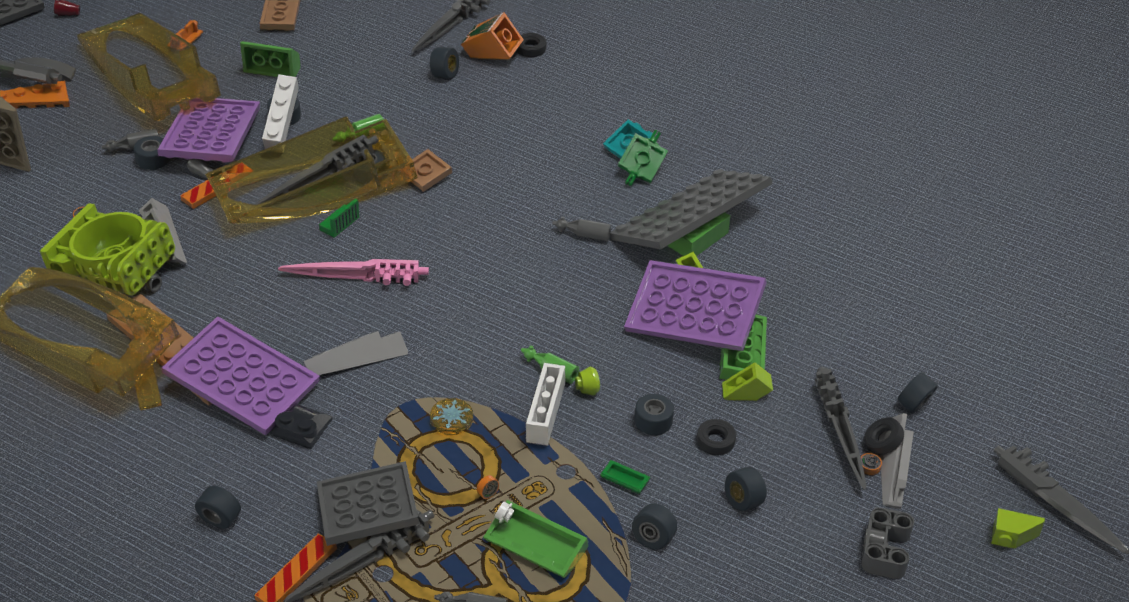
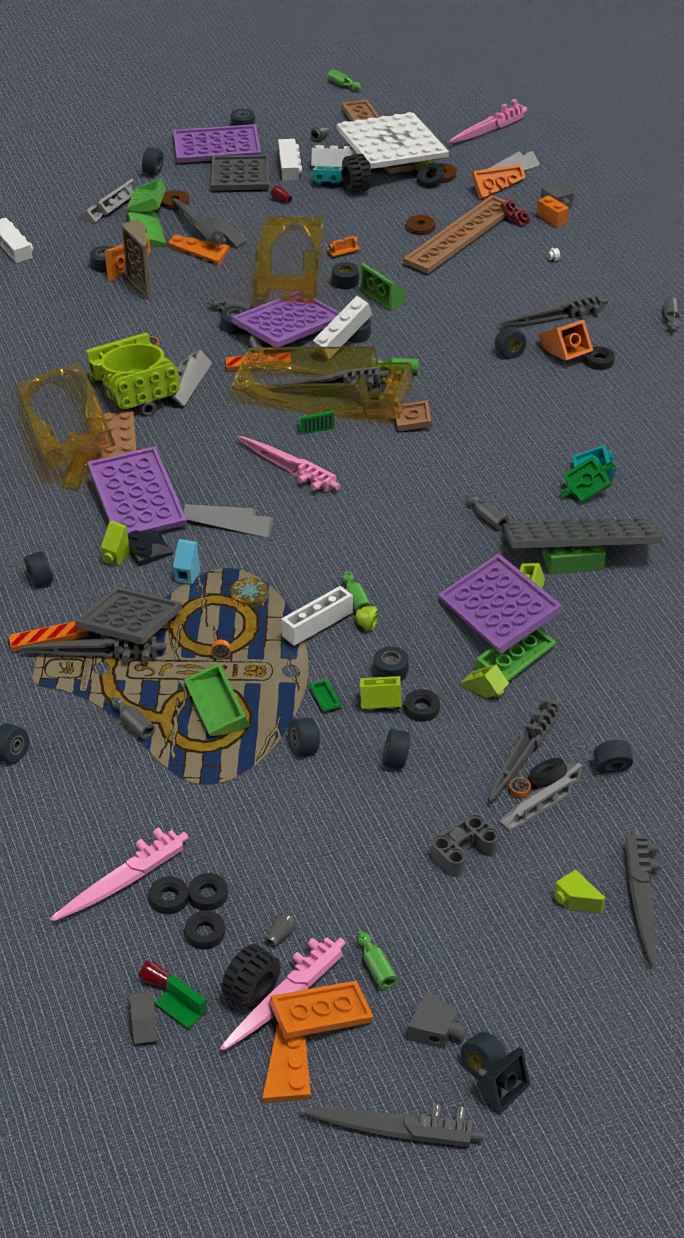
camera: 40 degrees right, 0 degrees up
(219, 62) = (345, 275): none -> black wheel
(274, 437) = (115, 544): none -> lime slope
(368, 418) = (186, 562): none -> medium azure slope
(504, 512) = (207, 668): white plate -> none
(677, 444) = (380, 692): none -> lime brick

